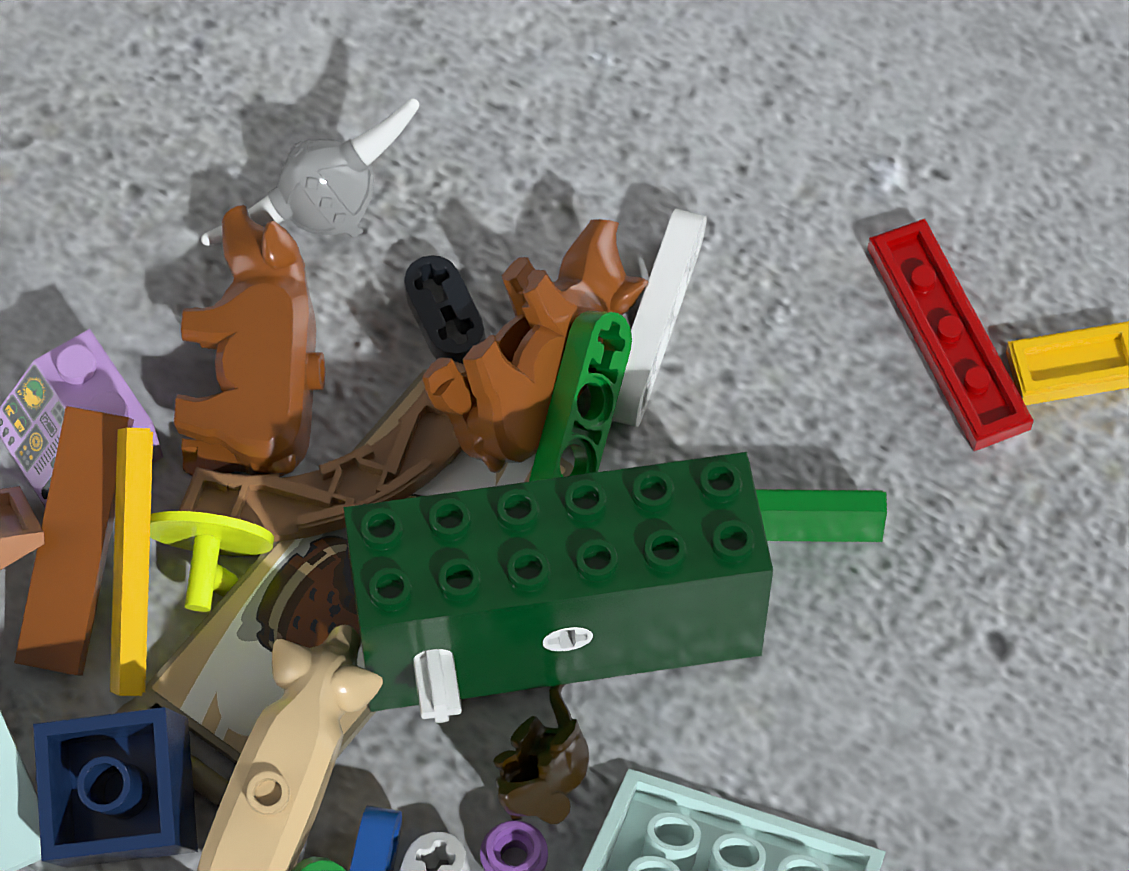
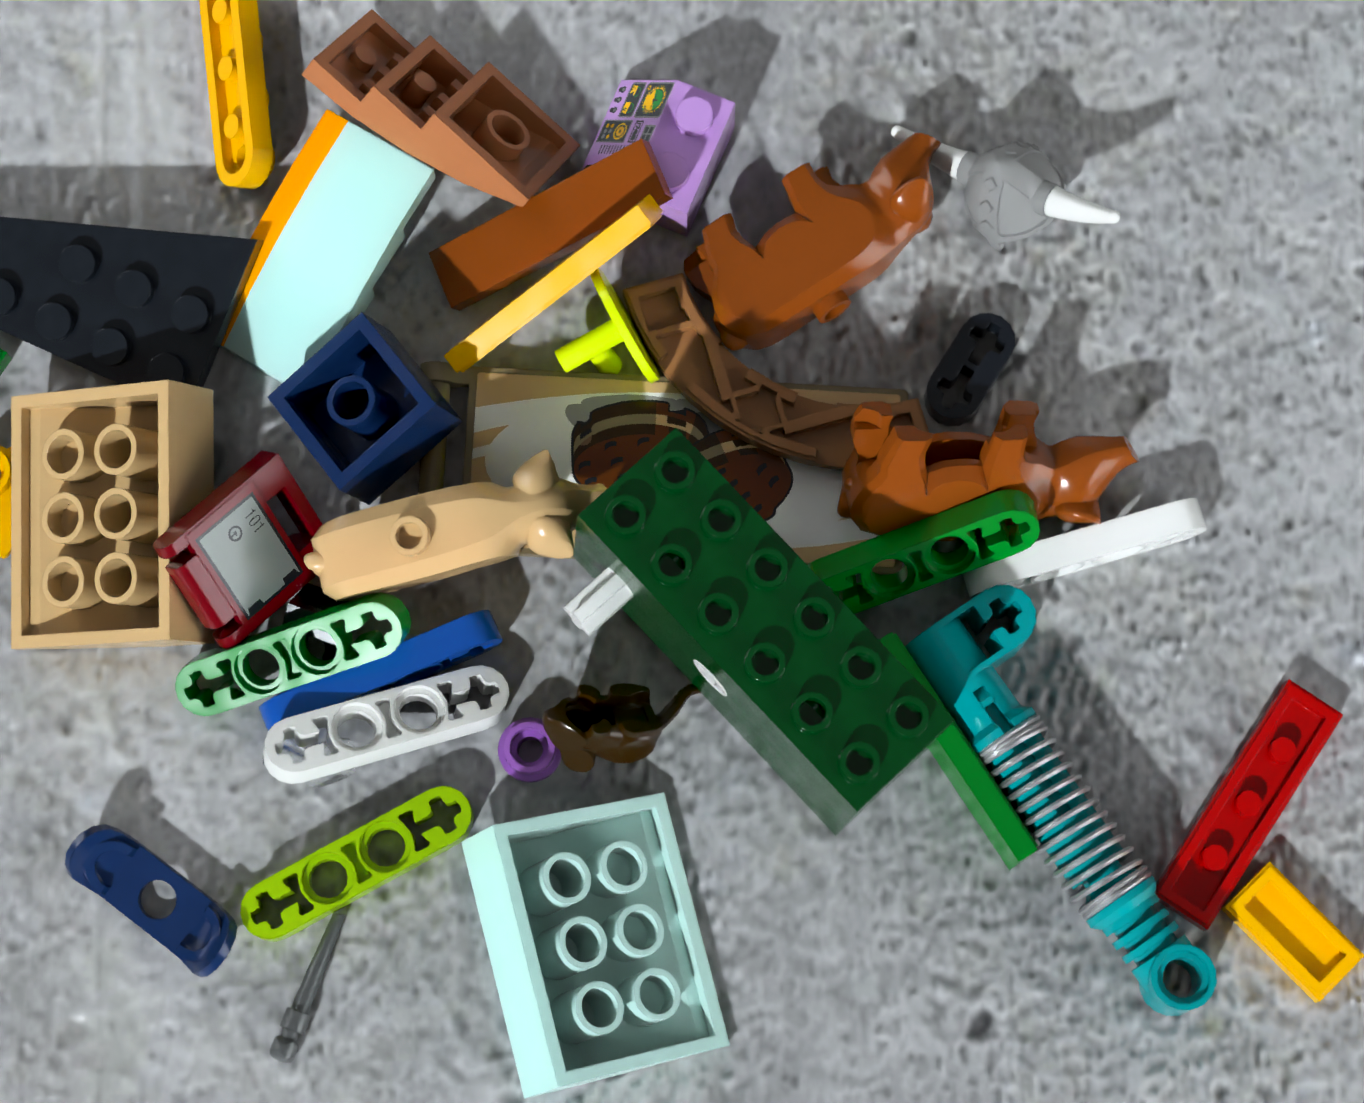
camera: 55 degrees right, 15 degrees up
(898, 463) = (1049, 798): none -> teal piece

